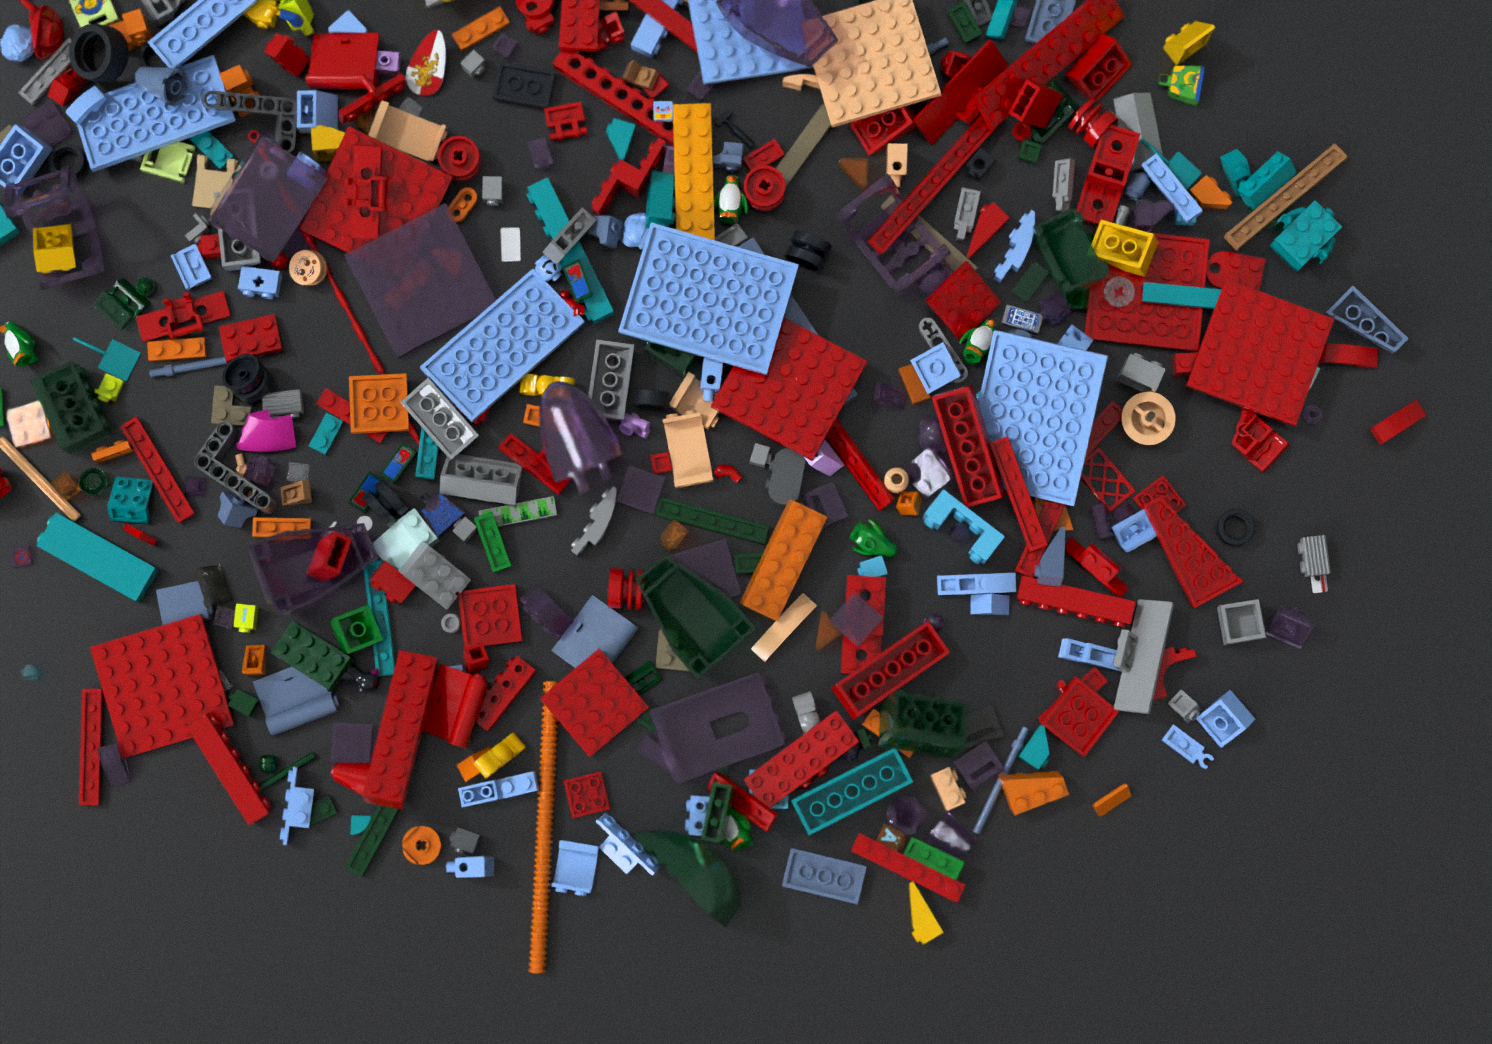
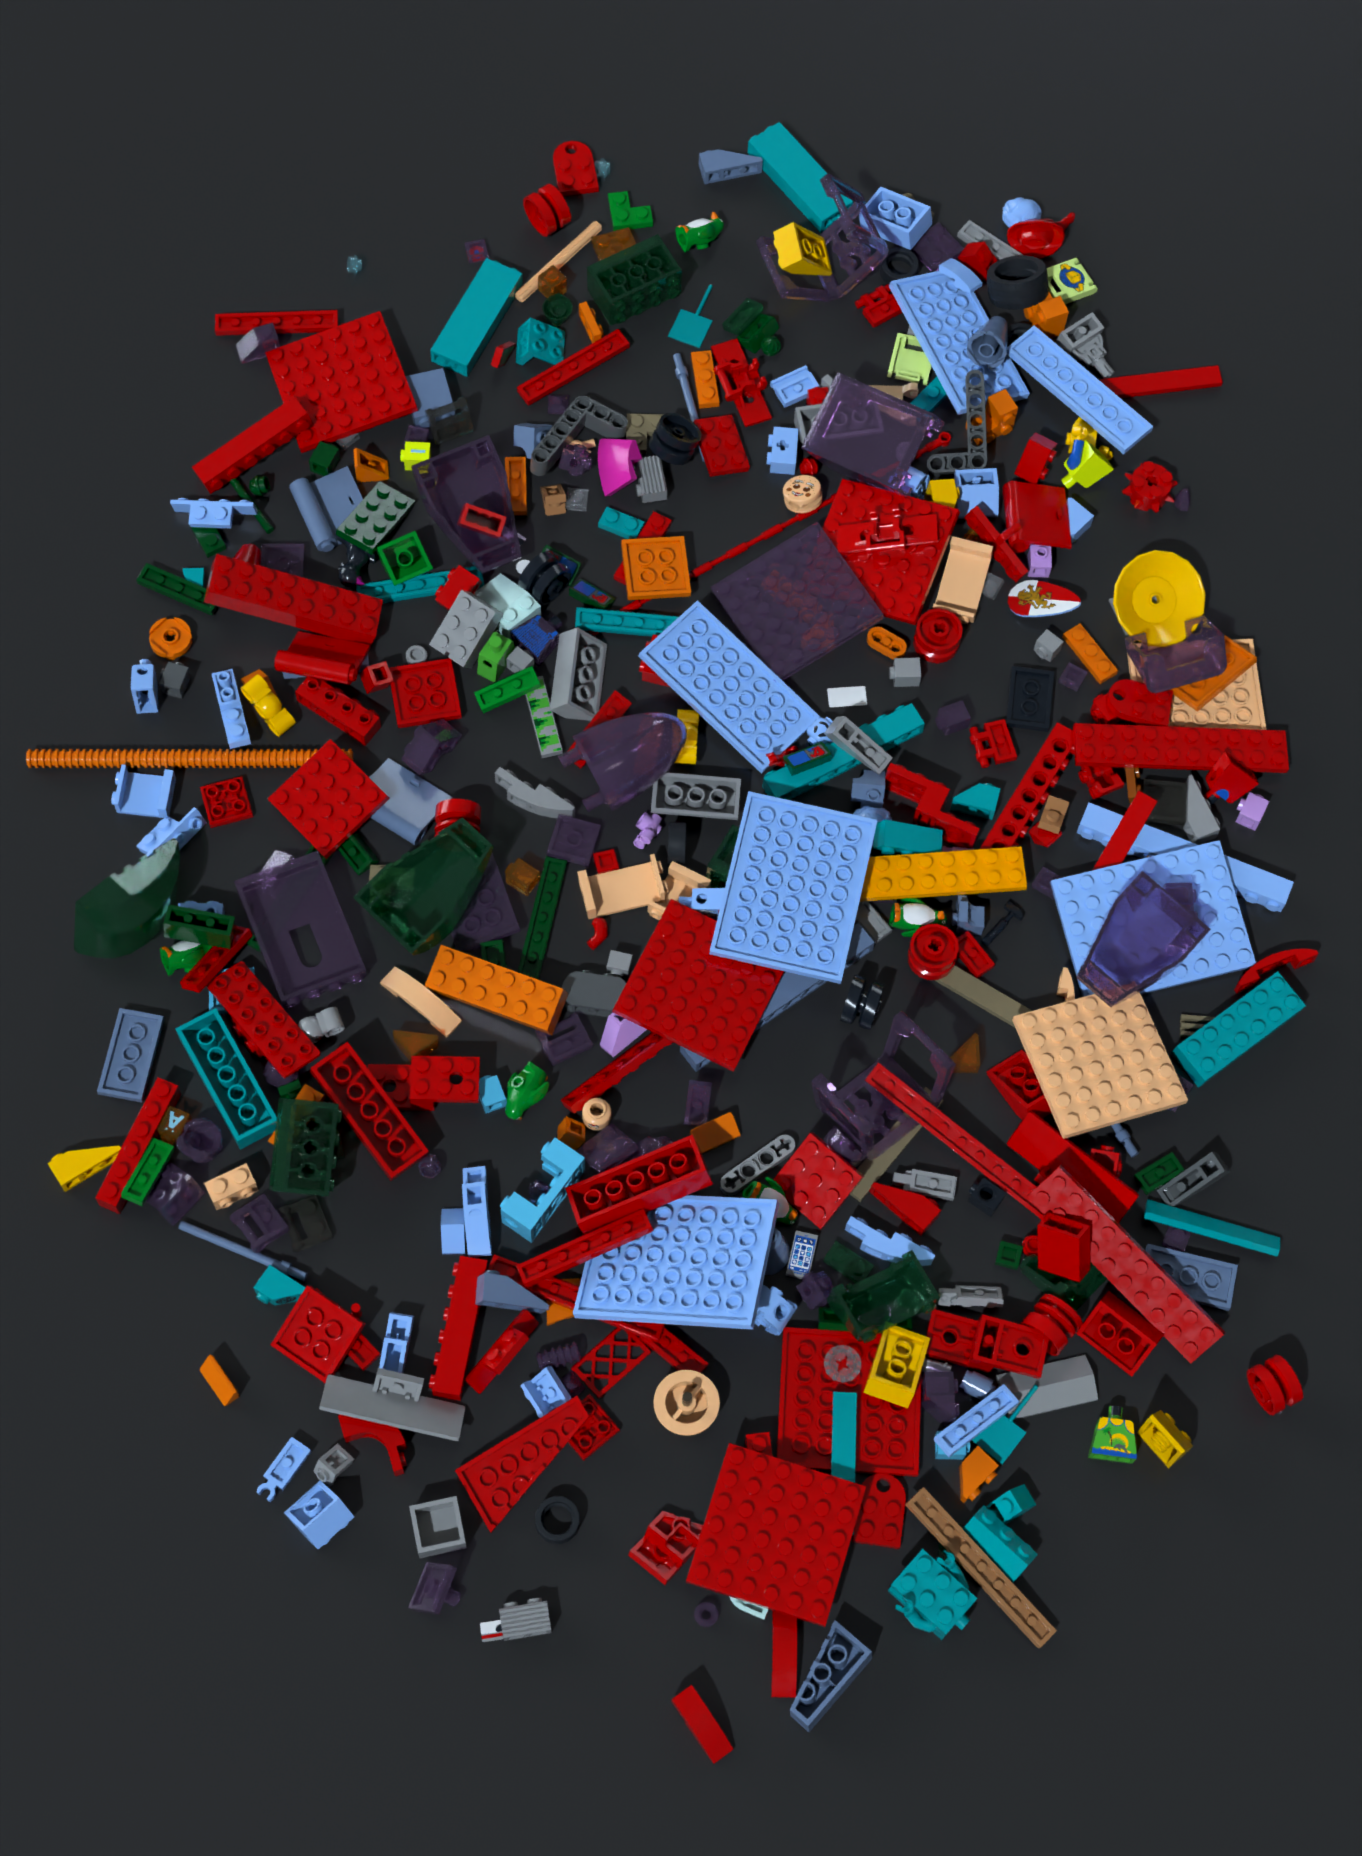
camera: 80 degrees right, 15 degrees down
(109, 388) = (658, 319): neon yellow bracket -> none
(114, 183) = (879, 311): none -> red plate
(439, 418) = (641, 626): light grey slope -> none
(460, 551) = (494, 654): none -> bright green torso
(663, 111) = (1013, 837): light blue tile -> none
(856, 619) = (425, 1065): clear purple plate -> none
(897, 155) = (978, 1099): light nougat torso -> none
(936, 367) = (734, 1153): light blue plate -> none
(1032, 789) = (229, 1282): orange wedge -> none
(1141, 373) = (741, 1390): light grey piece -> none

